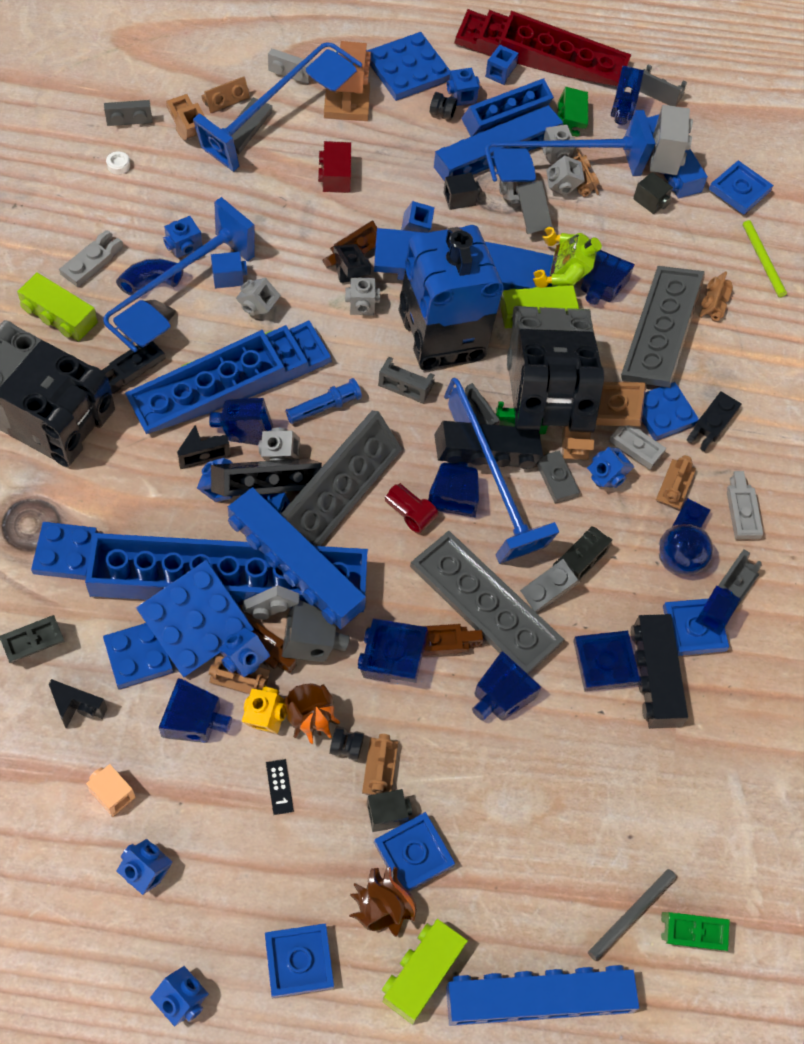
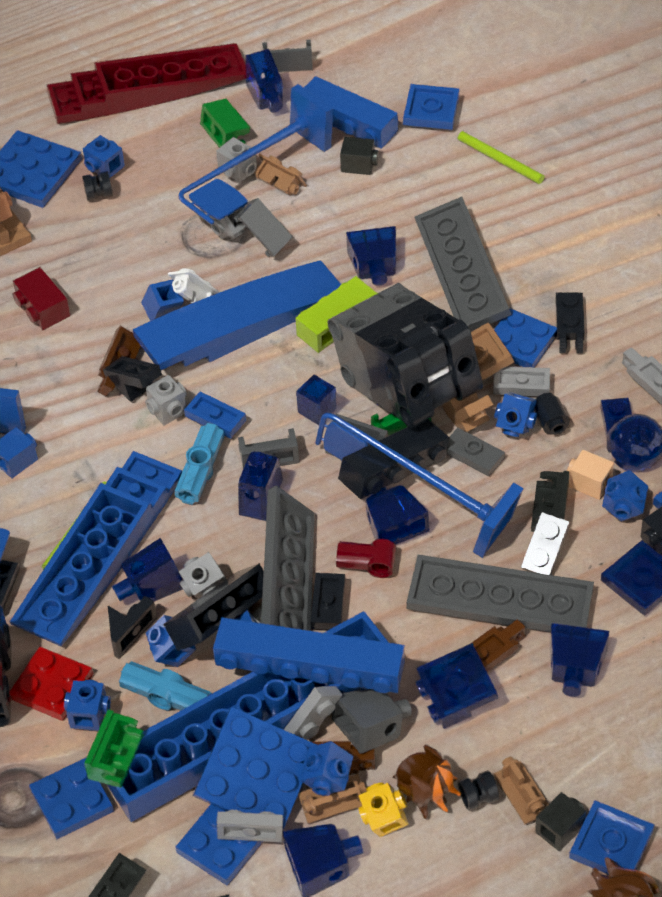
camera: 25 degrees left, 10 degrees down
(103, 535) = (113, 749): none -> green hinge
(119, 457) = (47, 681): none -> red plate
(125, 489) = (86, 705): none -> blue brick
(150, 651) = (249, 826): none -> light grey plate
(187, 510) = (161, 688): none -> dark azure piece
(257, 296) = (67, 457): light grey brick -> none
(279, 787) = (446, 869): black sticker -> none
(334, 398) = (214, 505): blue pin -> none
(339, 366) = (199, 463): none -> dark azure piece
(356, 523) = (327, 600): none -> black plate
(376, 395) = (258, 475): none -> clear blue torso
(389, 329) = (207, 409): none -> blue plate
(442, 216) = (191, 286): none -> white hinge
(449, 296) = (261, 344): piece -> none
(461, 191) = (179, 252): black brick -> none
(469, 363) = (316, 398): none -> clear blue brick
(470, 155) = (165, 211): blue brick -> none
(501, 64) = (122, 118): blue brick -> none
(506, 107) = (162, 154): blue brick -> none
(565, 175) = (267, 183): light grey brick -> none
(572, 258) = (334, 252): lime torso -> none
(631, 552) = (590, 474): none -> light nougat brick
(639, 484) = (551, 414): none -> black brick
(642, 587) = (625, 496): none -> blue brick
(671, 139) = (347, 95): light grey brick -> none
(676, 482) = (580, 392): medium nougat hinge -> none
(718, 289) = (486, 214): medium nougat hinge -> none

